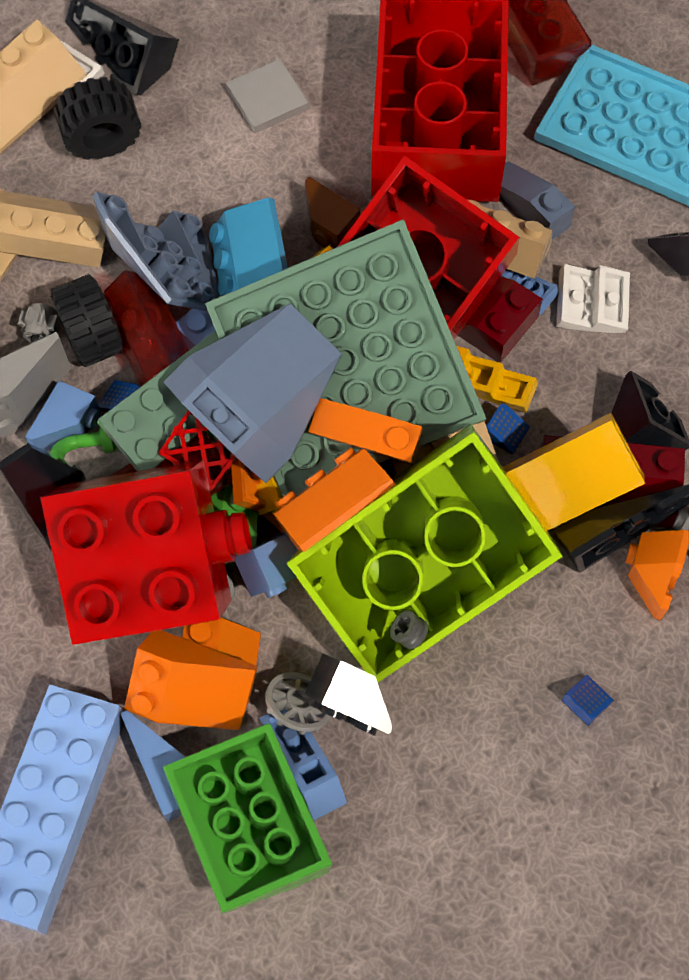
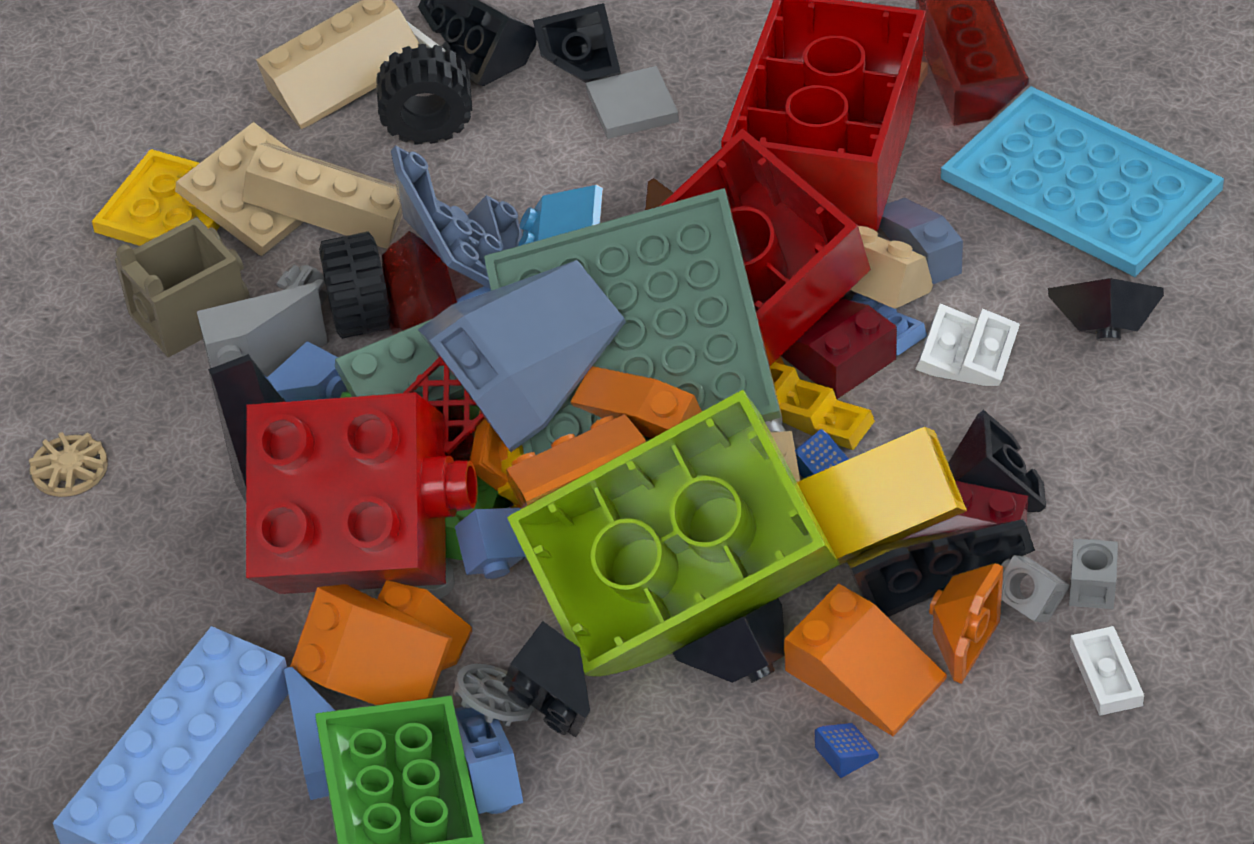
camera: 15 degrees right, 20 degrees down
(214, 48) = (579, 43): none -> black slope
(409, 630) = (635, 614): dark grey bush -> none
(491, 631) = (740, 647): none -> black slope
(585, 619) = (861, 660): none -> orange slope

